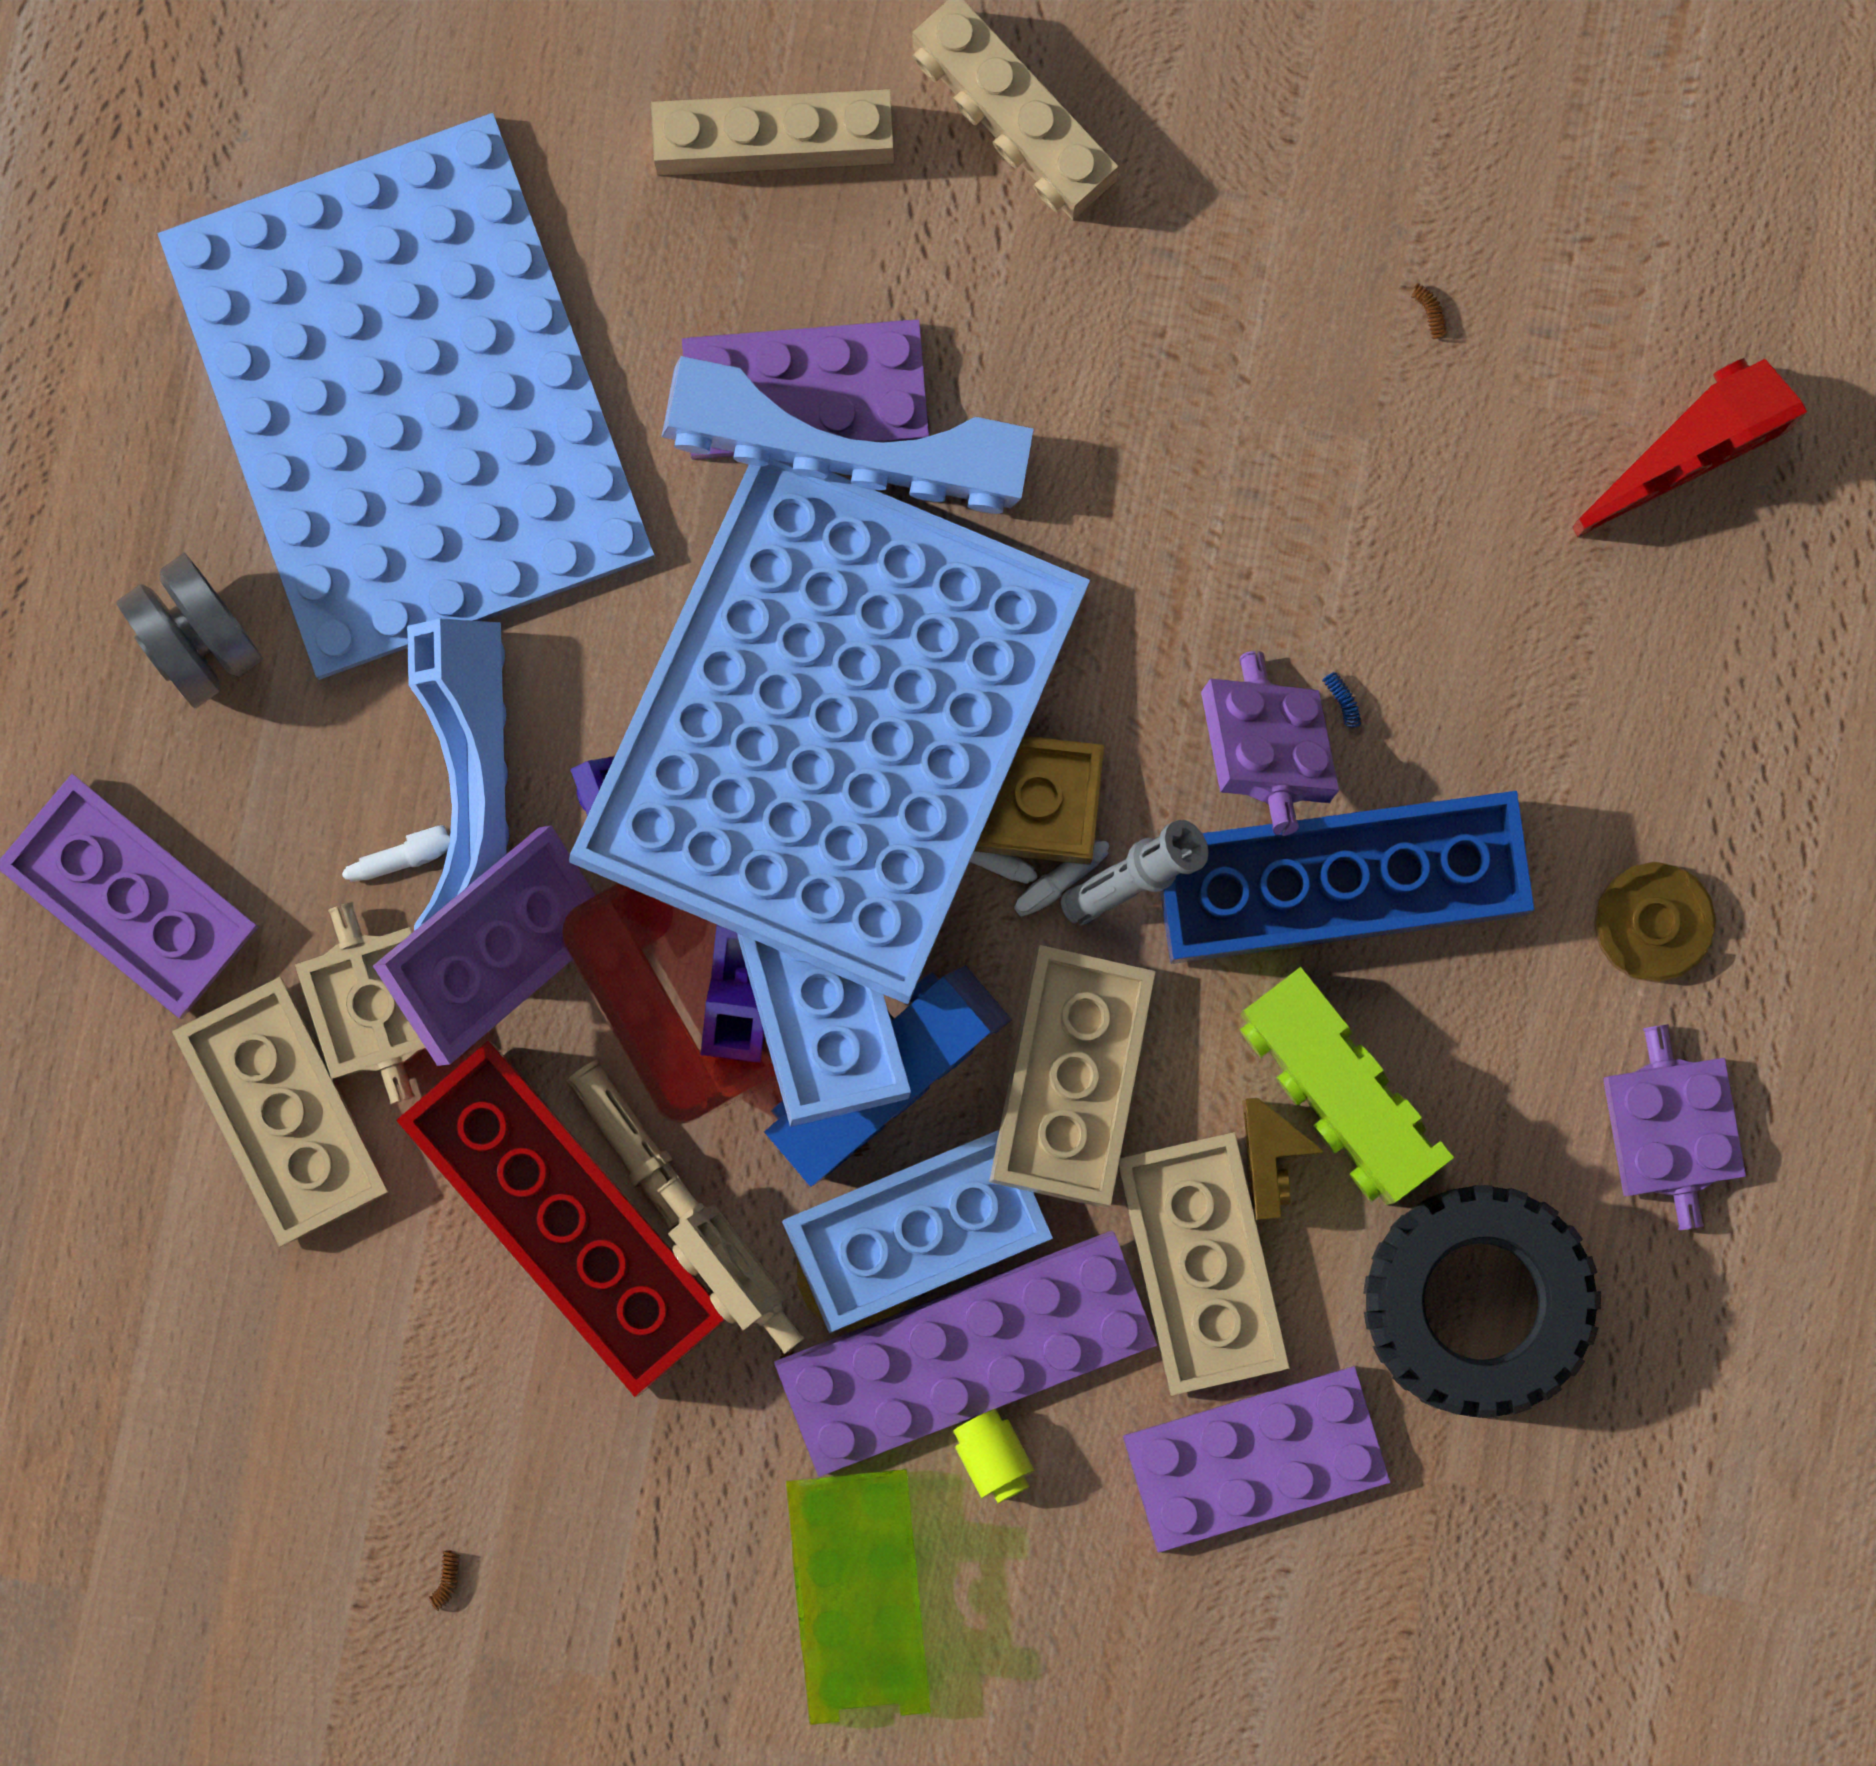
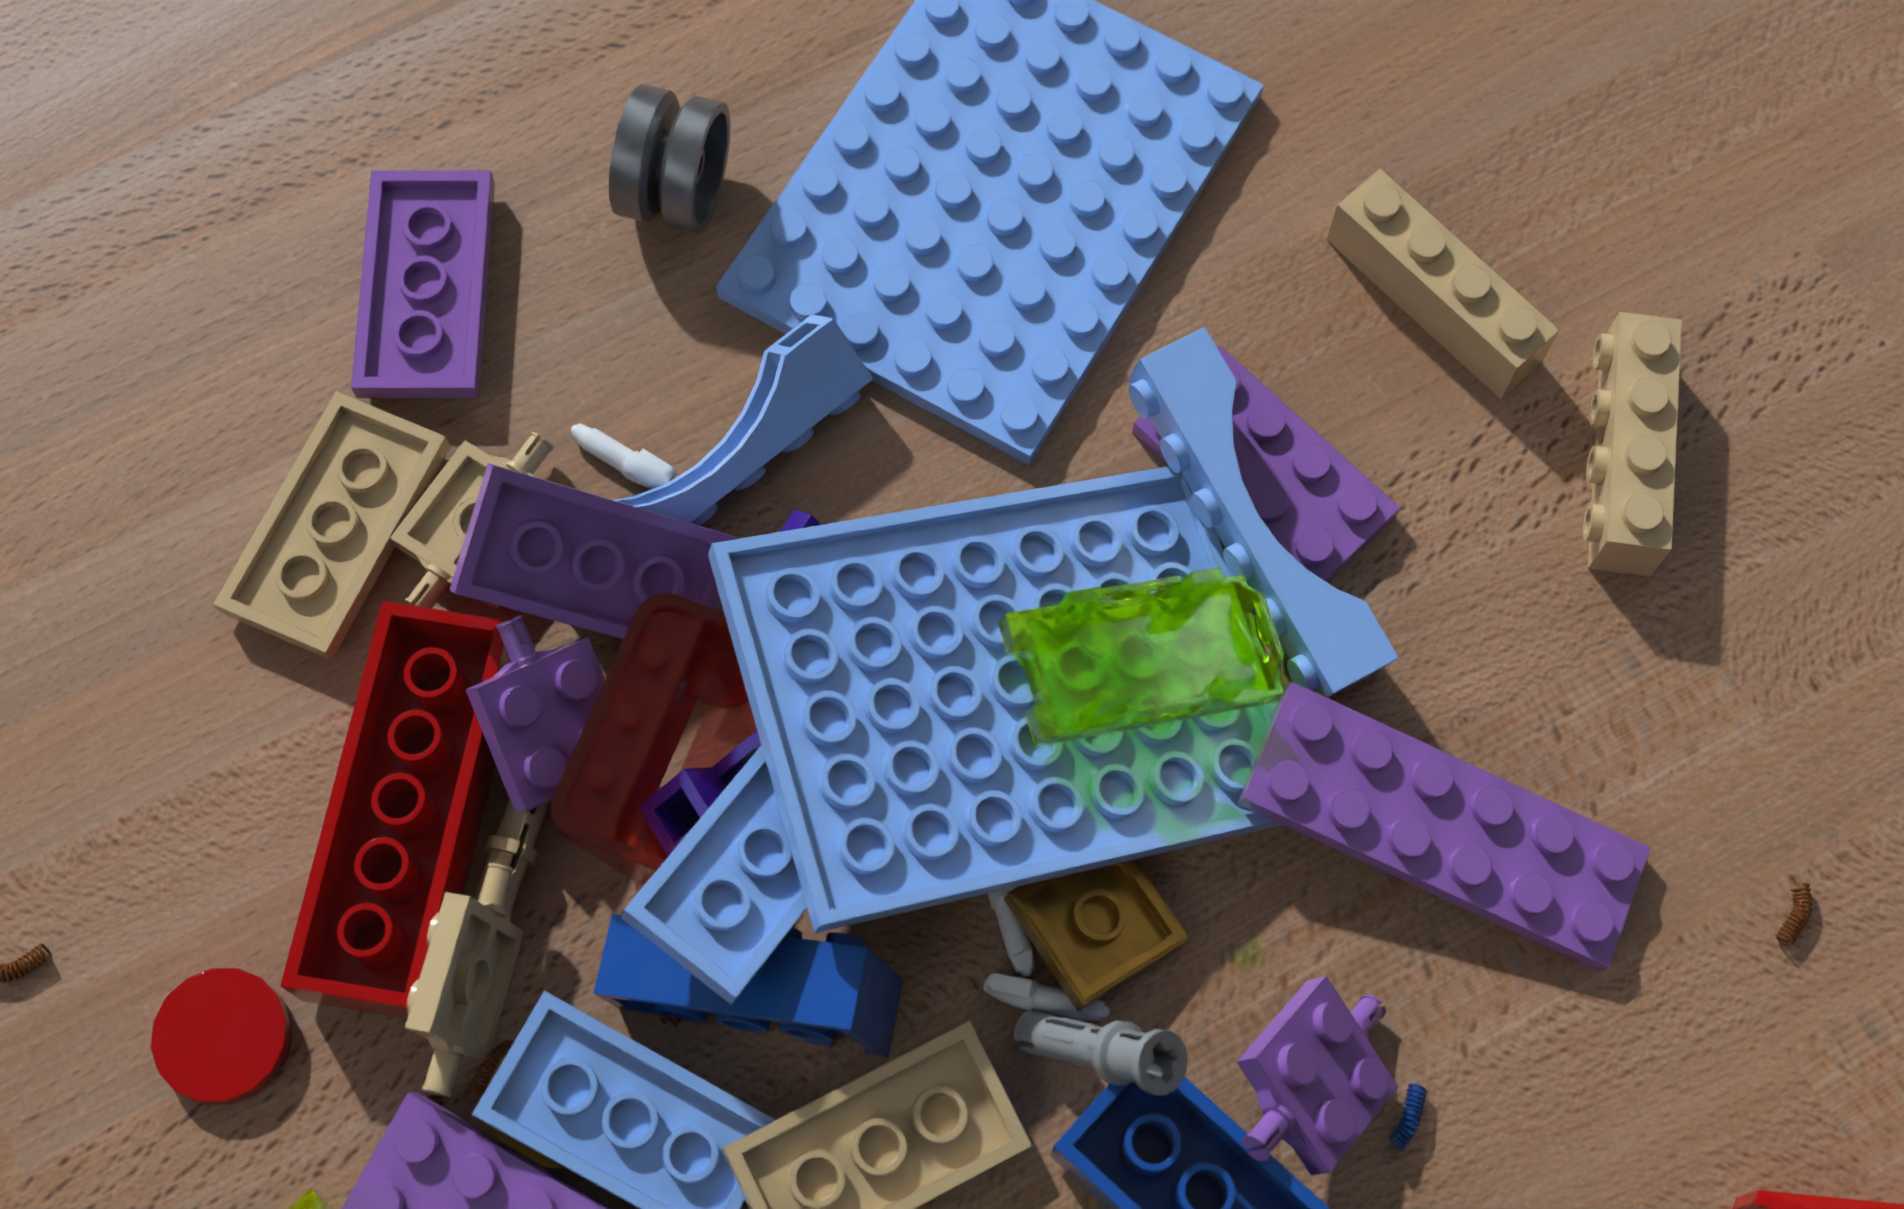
camera: 50 degrees right, 15 degrees down
(576, 1070) = (536, 711): none -> medium lavender plate
(619, 1470) = (221, 1036): none -> red tile
(795, 1292) = (481, 1080): none -> dark orange leg
(890, 610) = (1145, 655): none -> clear neon green piece
(1172, 501) = (1445, 826): none -> medium lavender plate

